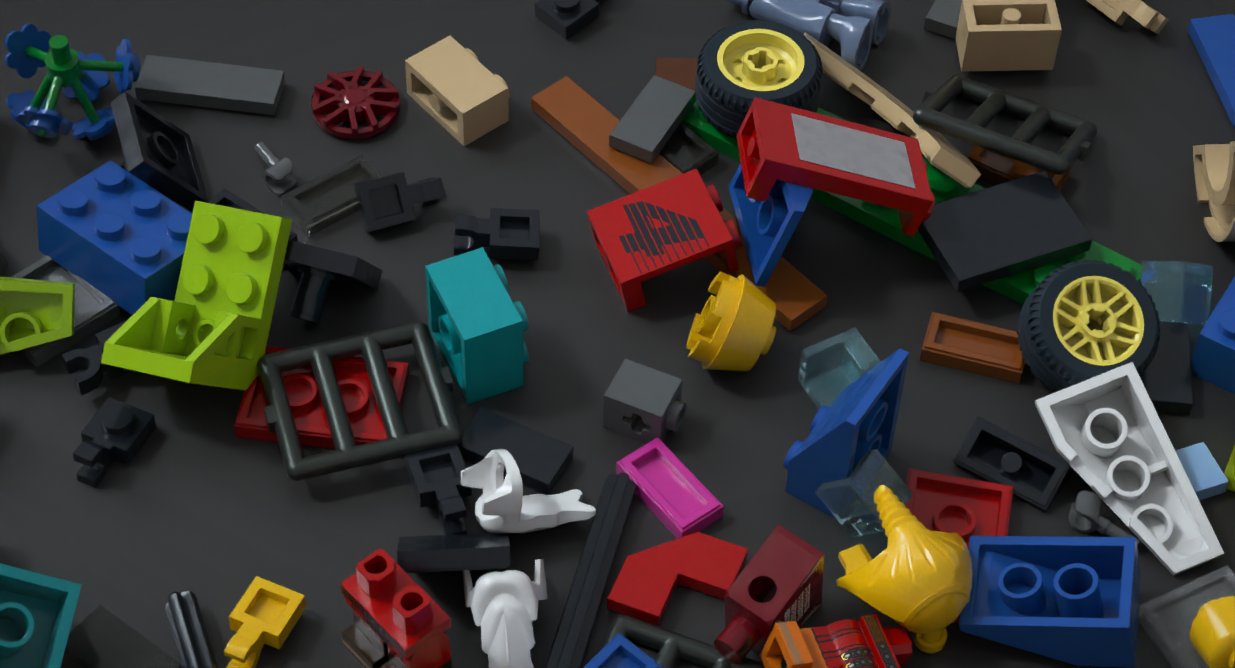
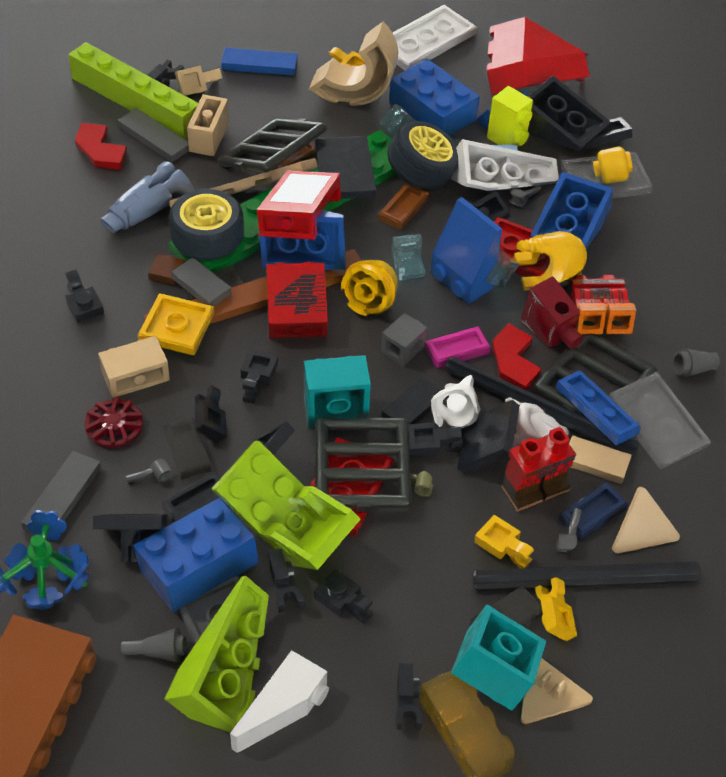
camera: 75 degrees left, 0 degrees up
(353, 494) = (423, 483): none -> olive hand
(557, 113) = (177, 323): none -> yellow tile

